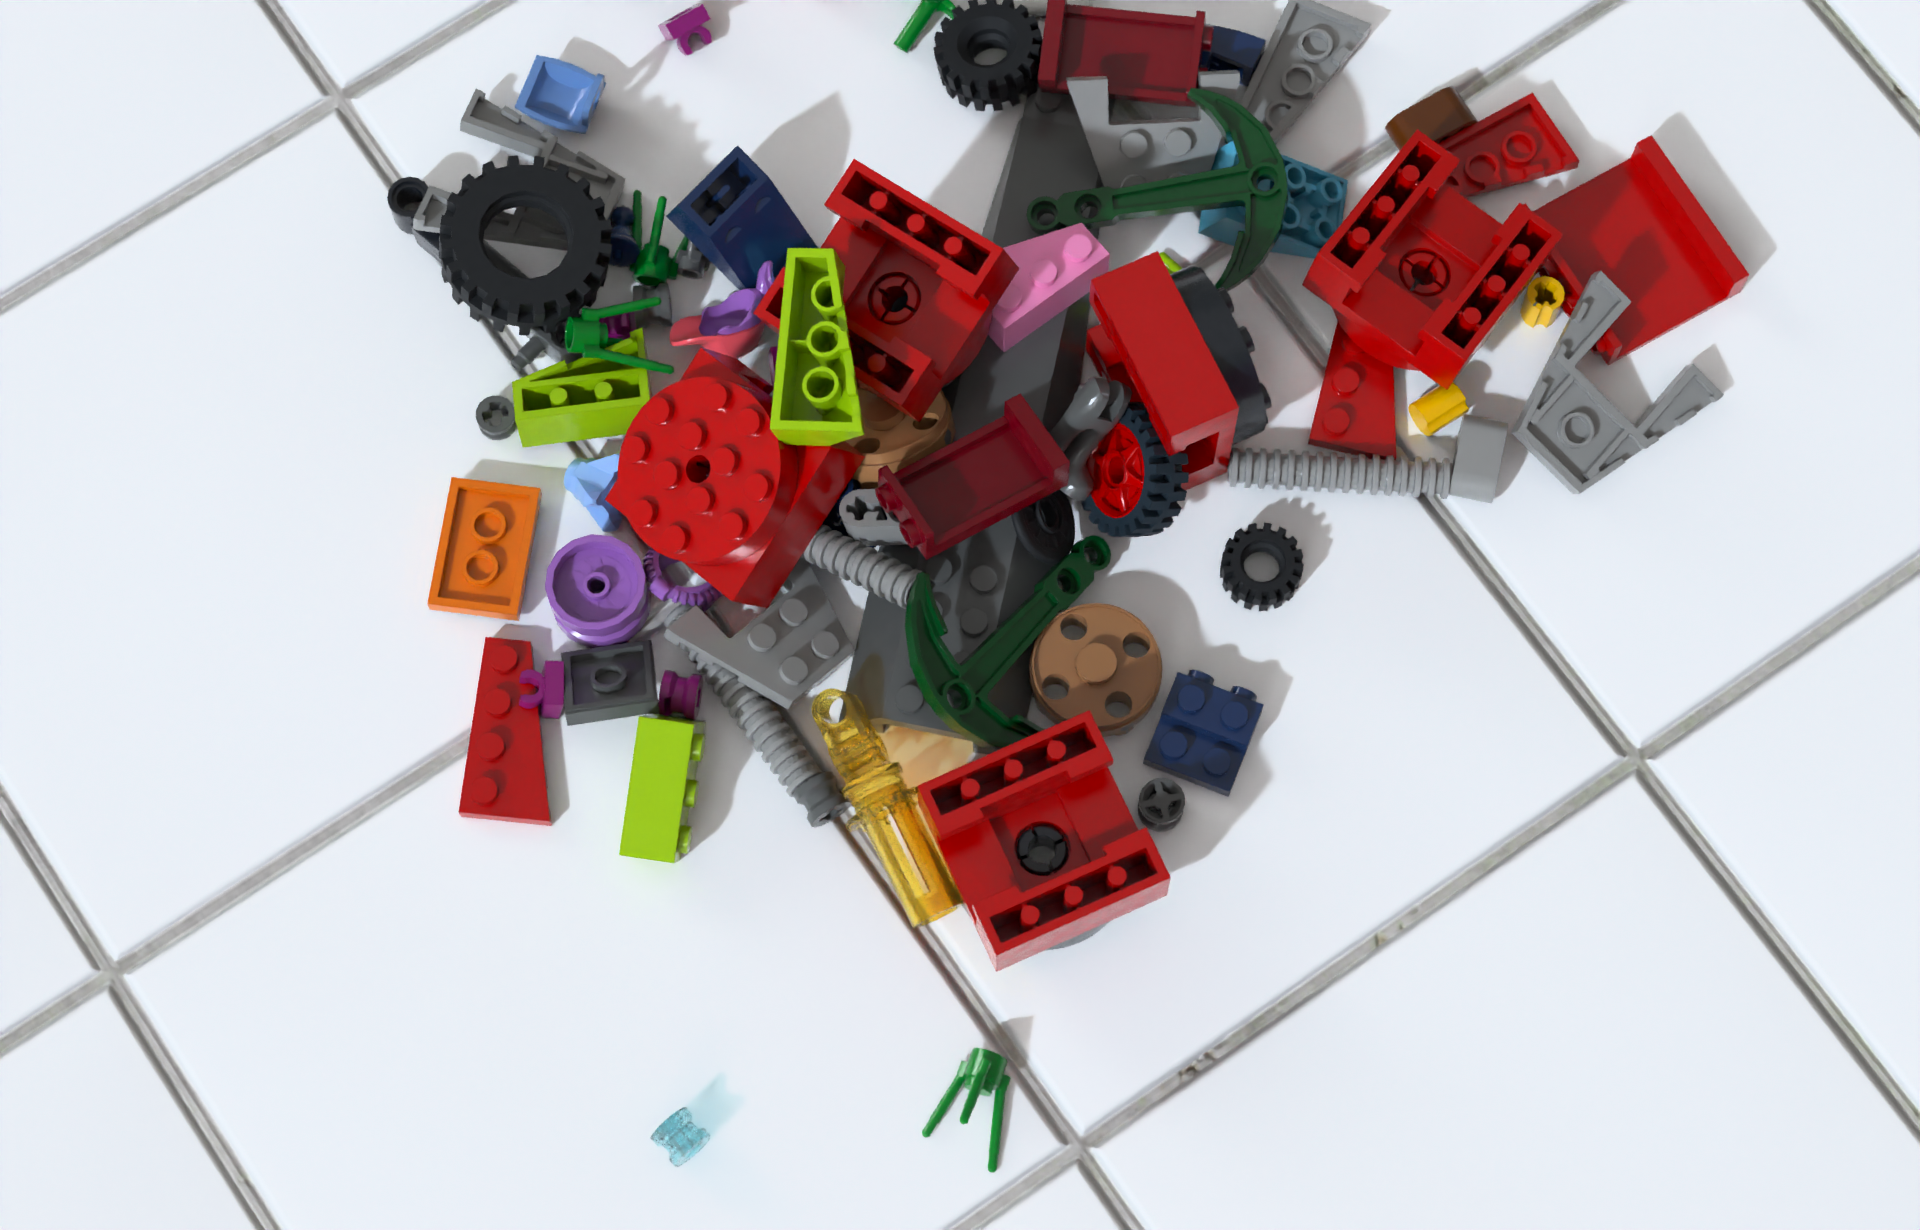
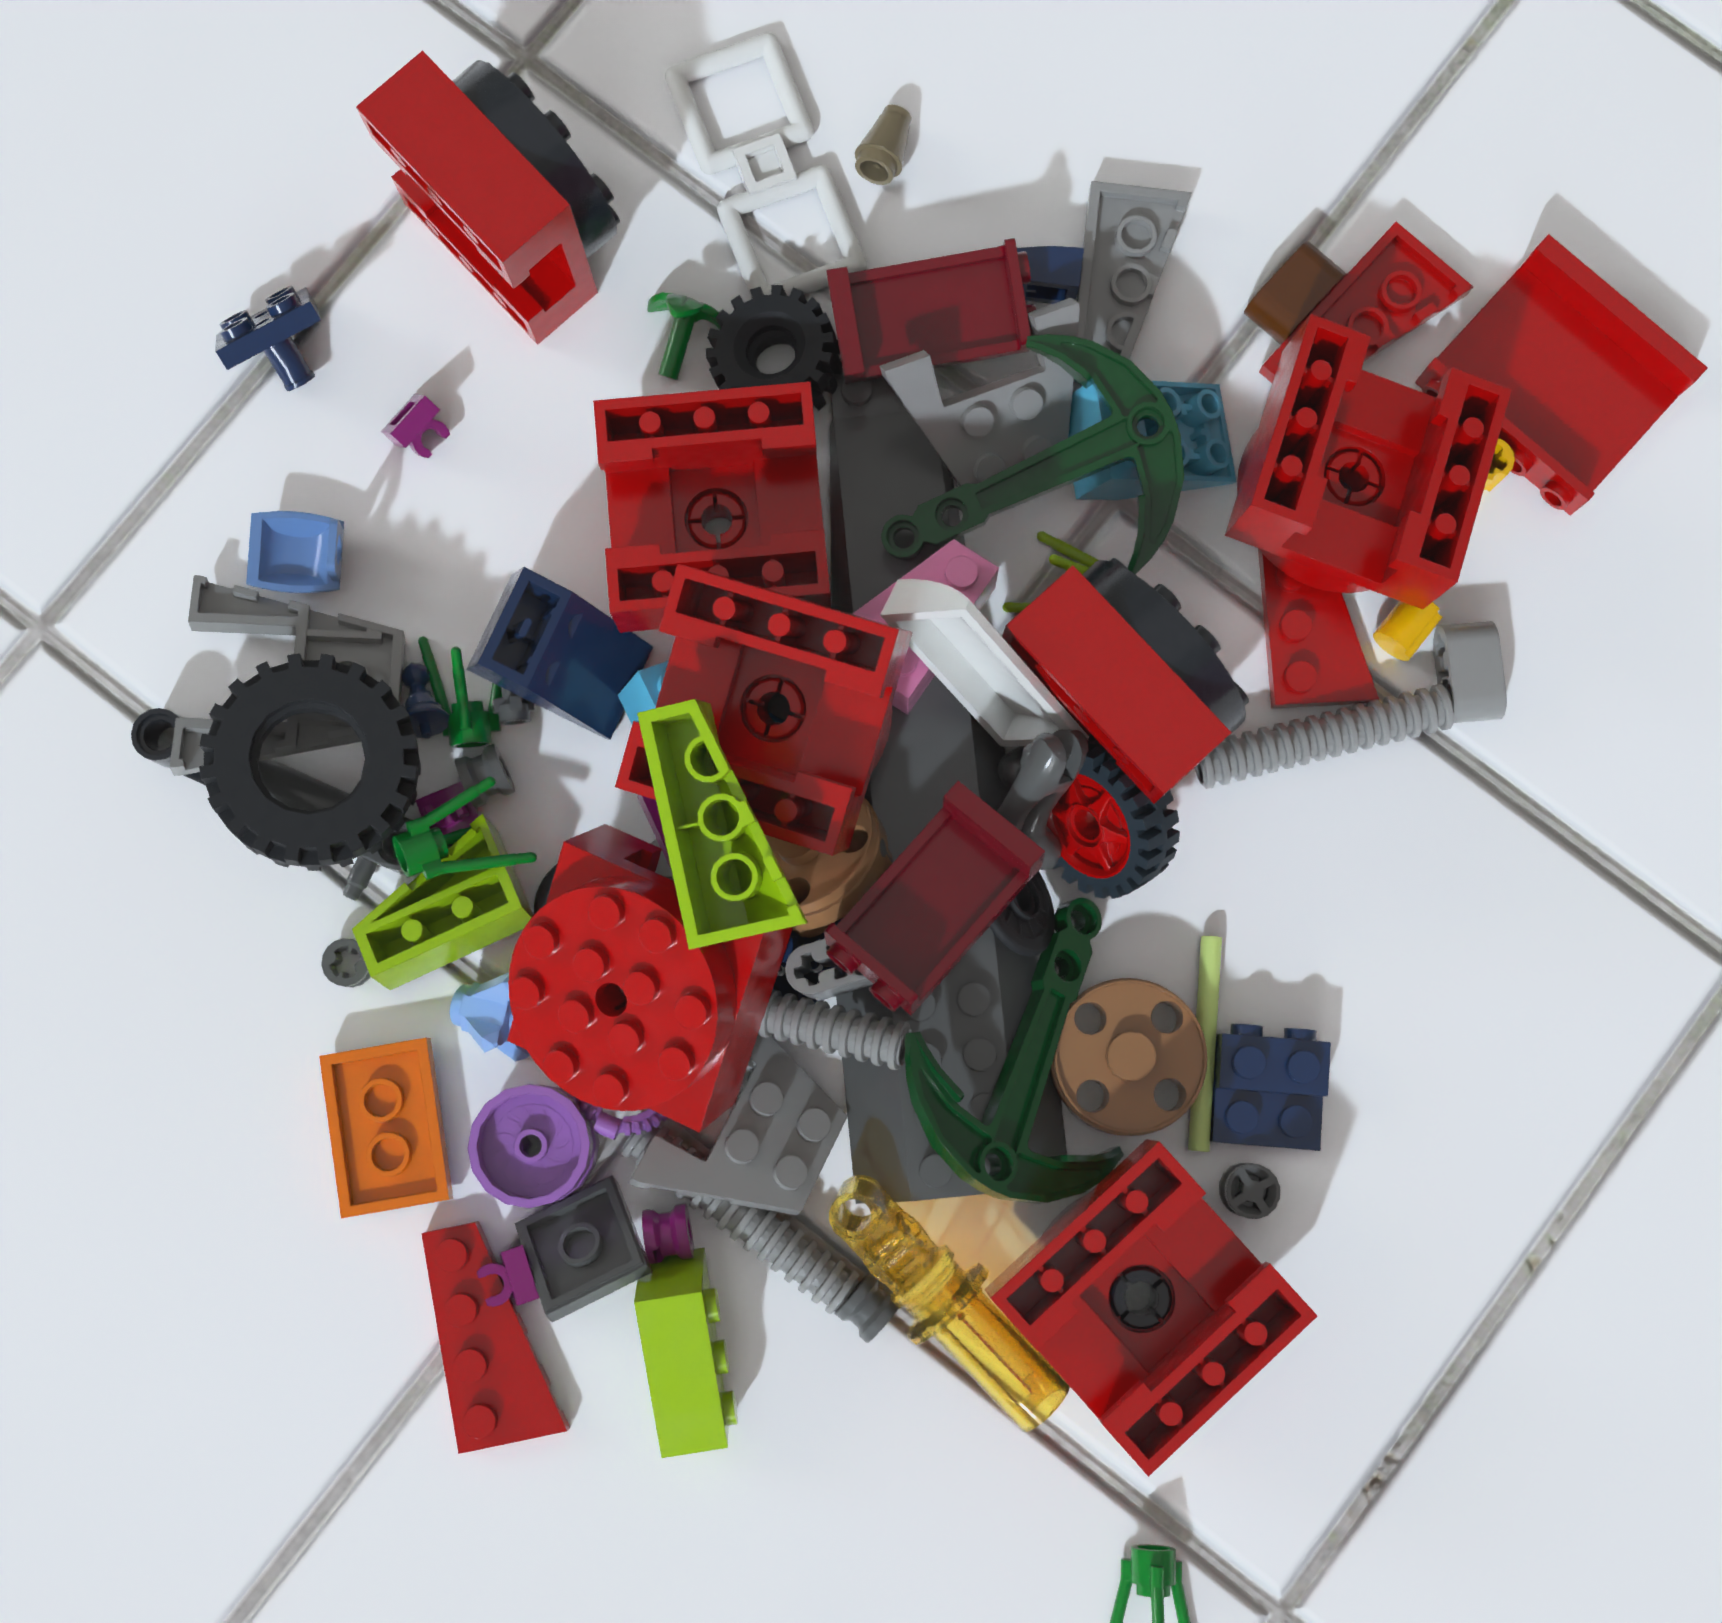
camera: 20 degrees left, 10 degrees up
(730, 325) = (583, 773): hair -> none
(906, 112) = (703, 458): none -> red piece
(1063, 310) = (975, 662): none -> white slope
(1171, 665) = (1207, 1017): none -> yellowish green bar
(1266, 541) = (1302, 865): black tyre -> none
(1574, 424) = (1564, 599): light grey wing -> none

